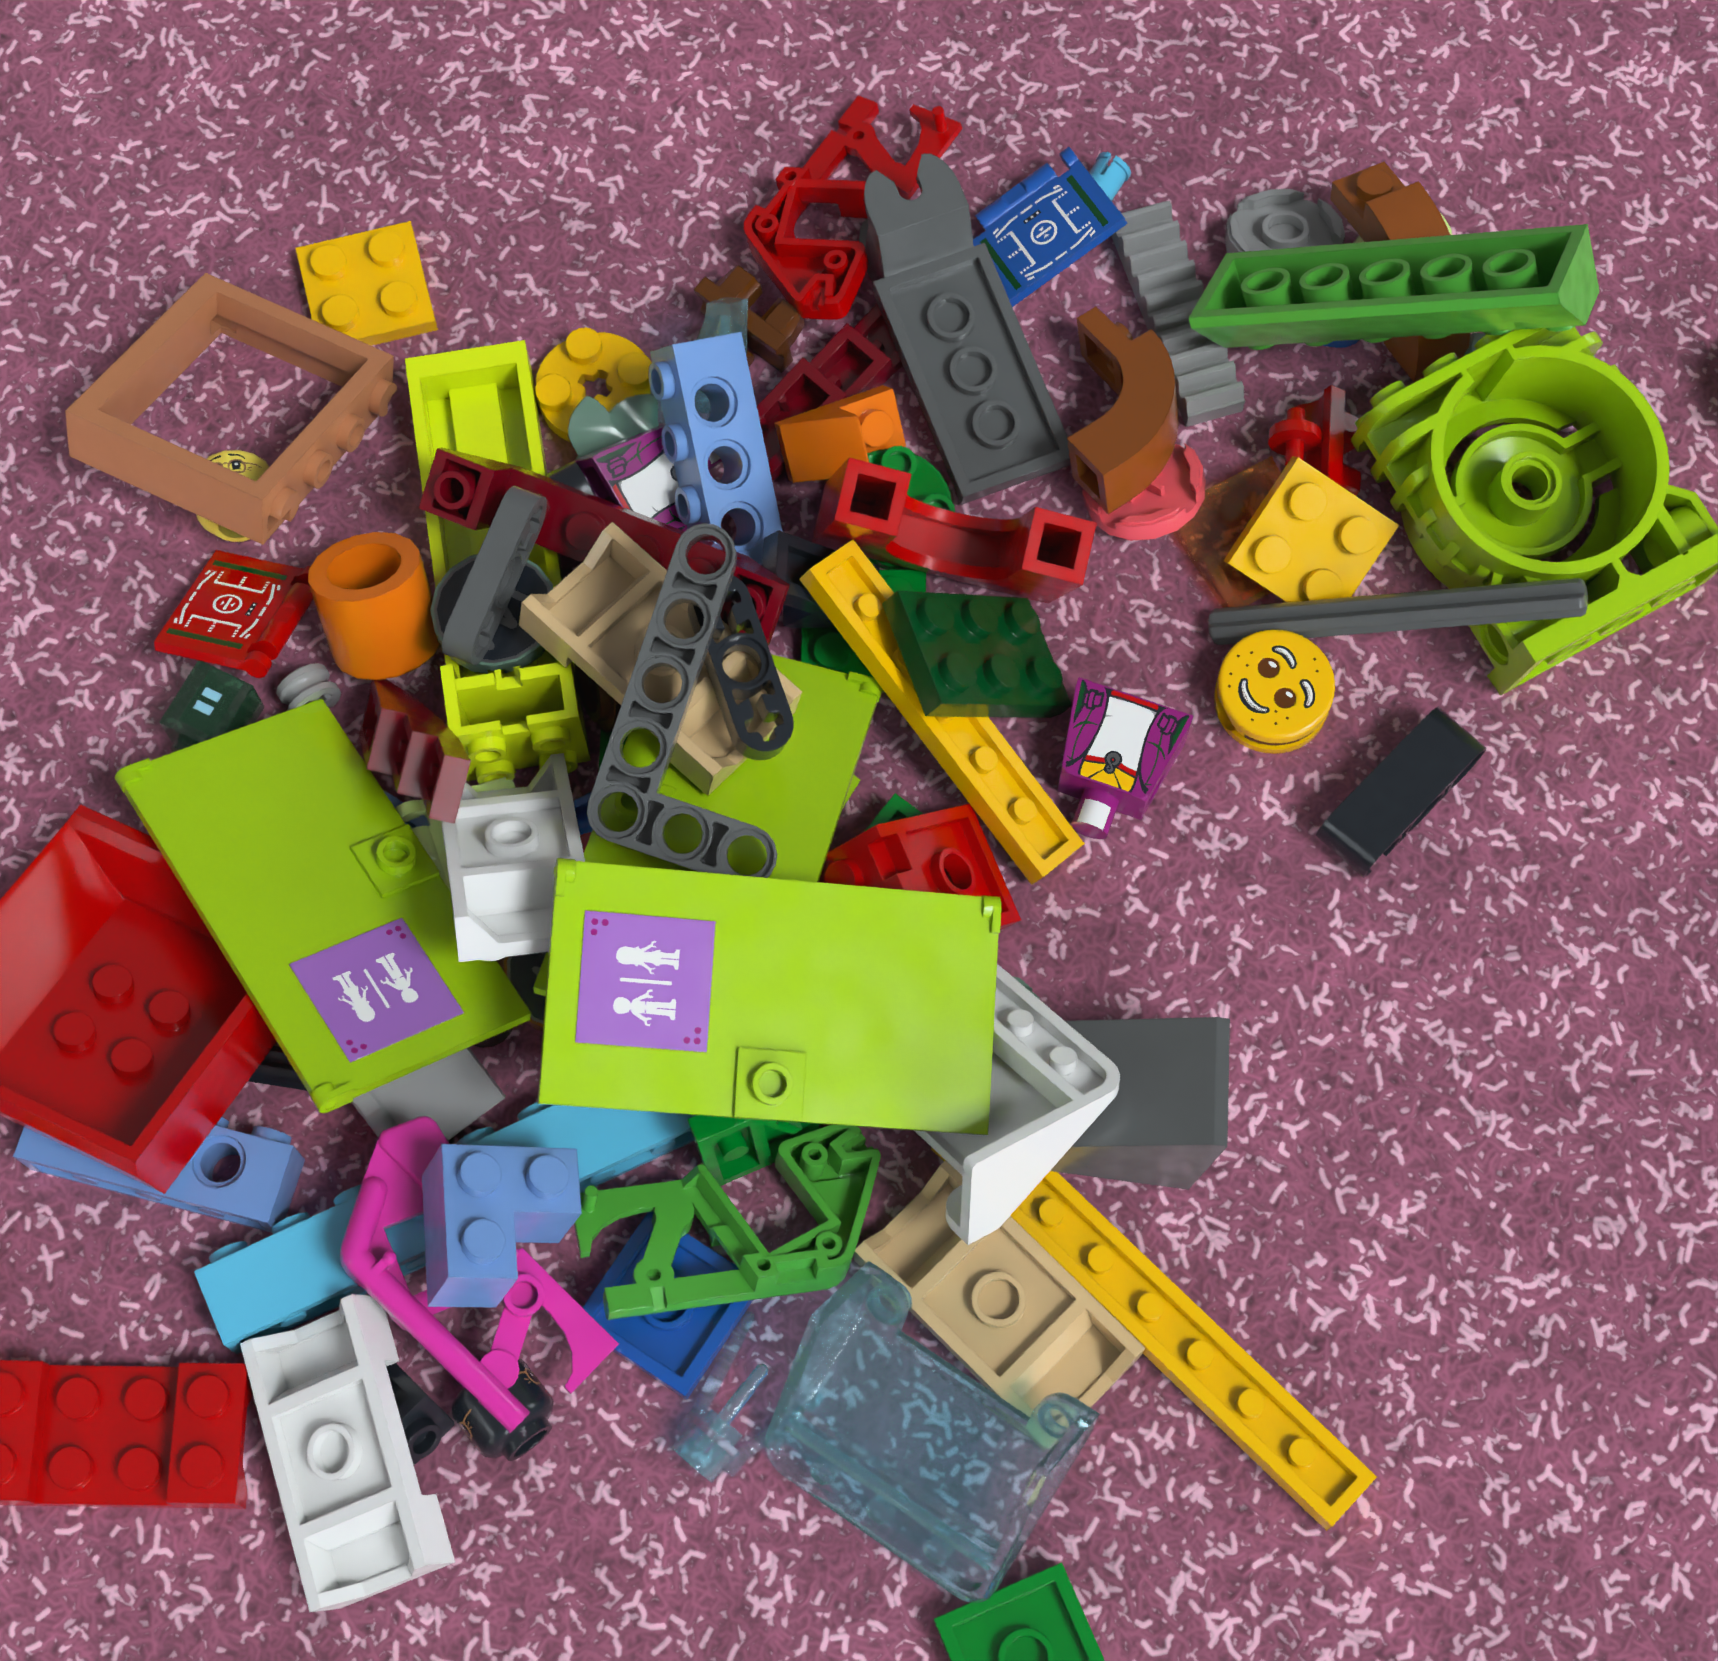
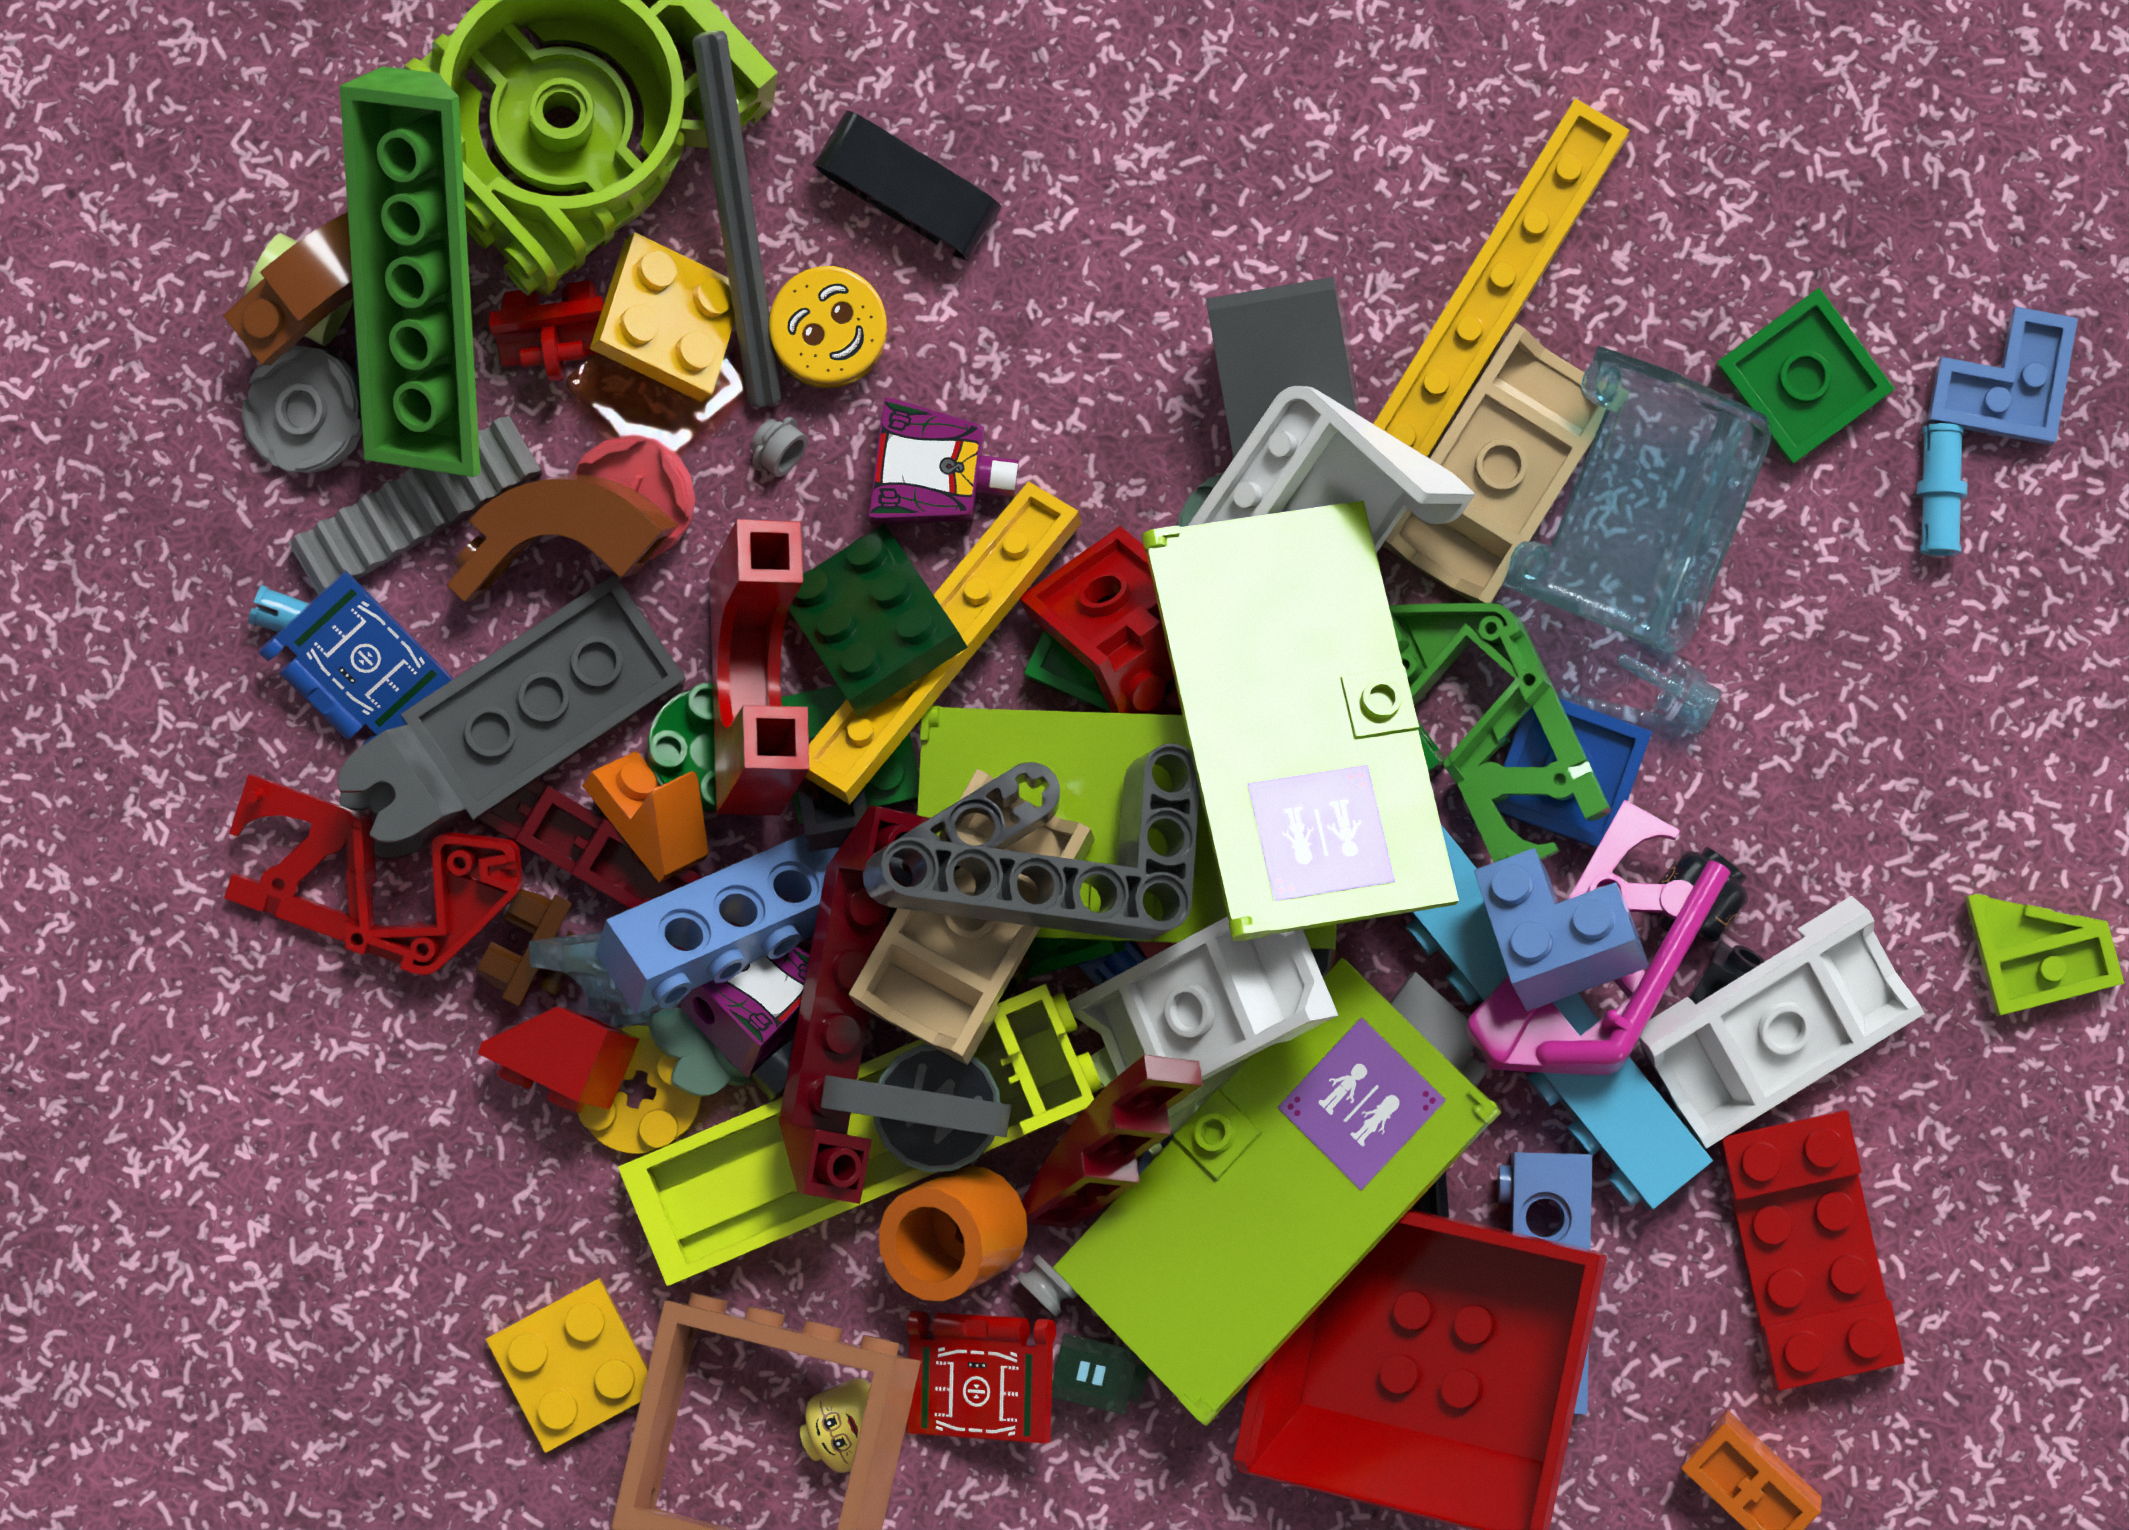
camera: 100 degrees left, 15 degrees up
(633, 317) = (566, 1052): none -> red slope
(1172, 620) = (778, 446): none -> light grey plate

